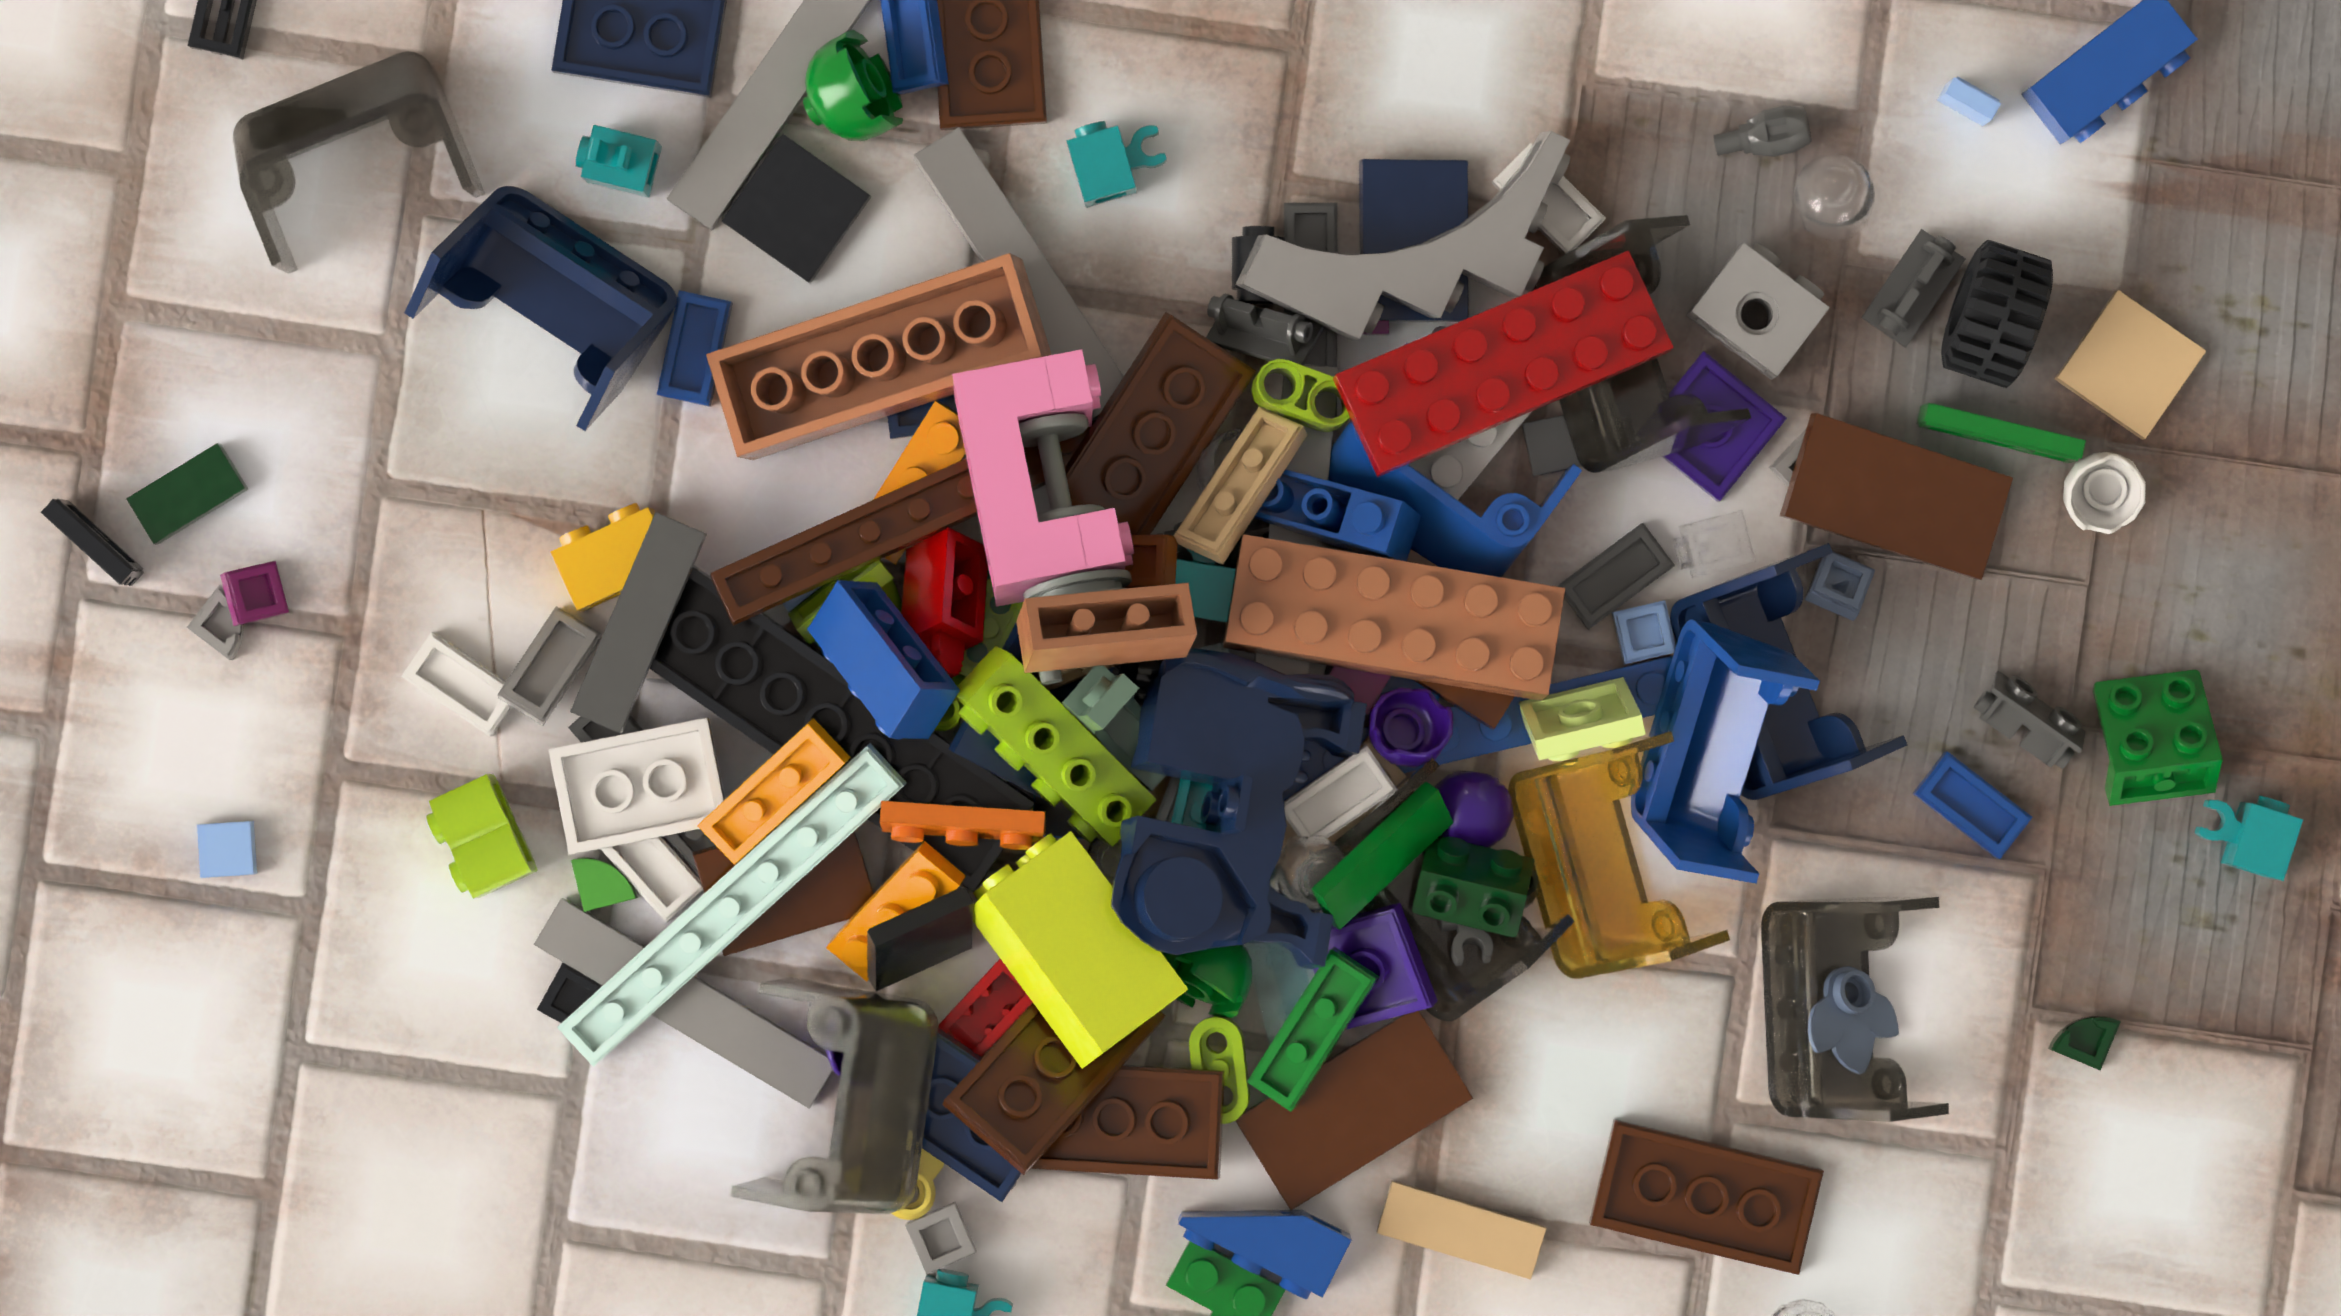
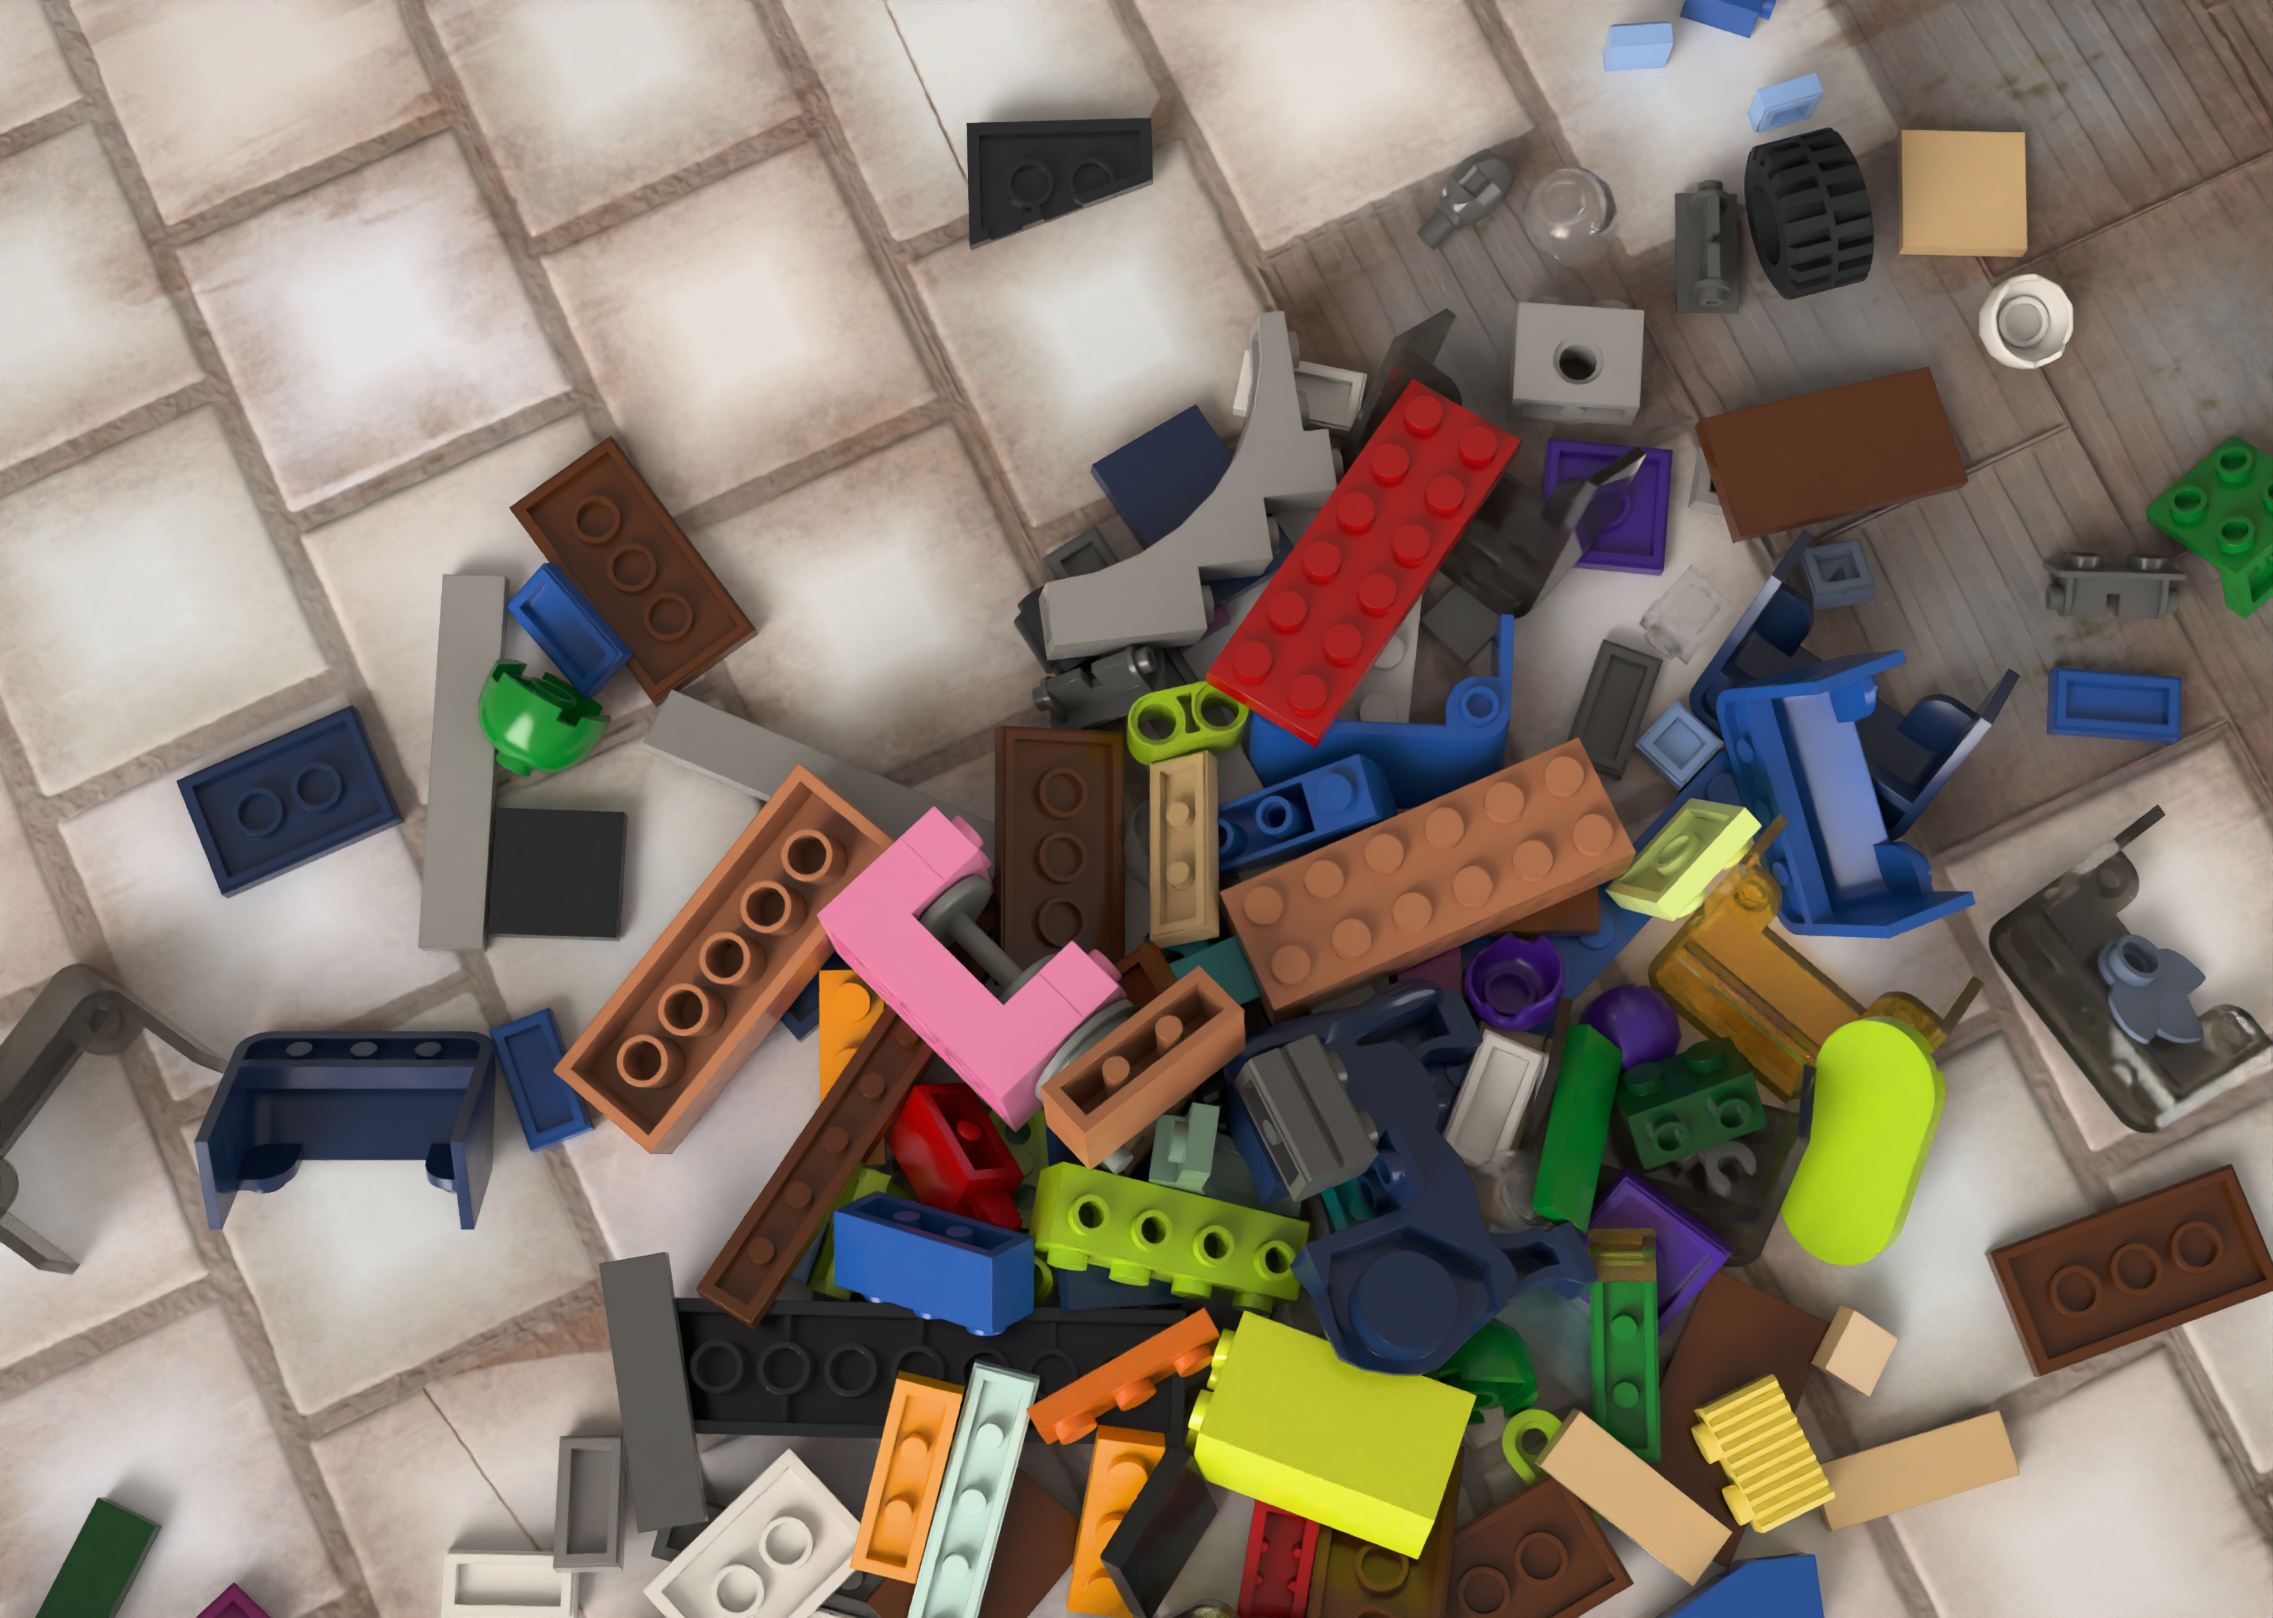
camera: 35 degrees left, 10 degrees down
(600, 561) = (574, 1359): yellow brick -> none
(618, 160) = (345, 939): teal brick -> none
(1105, 164) = (843, 631): teal brick -> none
(1196, 731) = (1307, 1116): none -> dark grey brick
(1255, 1122) = (1633, 1497): none -> tan tile
(1355, 959) = (1623, 1254): none -> clear yellow tile
(1362, 1151) = (1762, 1455): none -> light yellow brick
(1475, 1125) = (1854, 1351): none -> tan tile
(1573, 990) = (1867, 1142): none -> lime tile
(2000, 433) = (1887, 331): green tile -> none
(2046, 215) = (1785, 103): none -> light blue tile

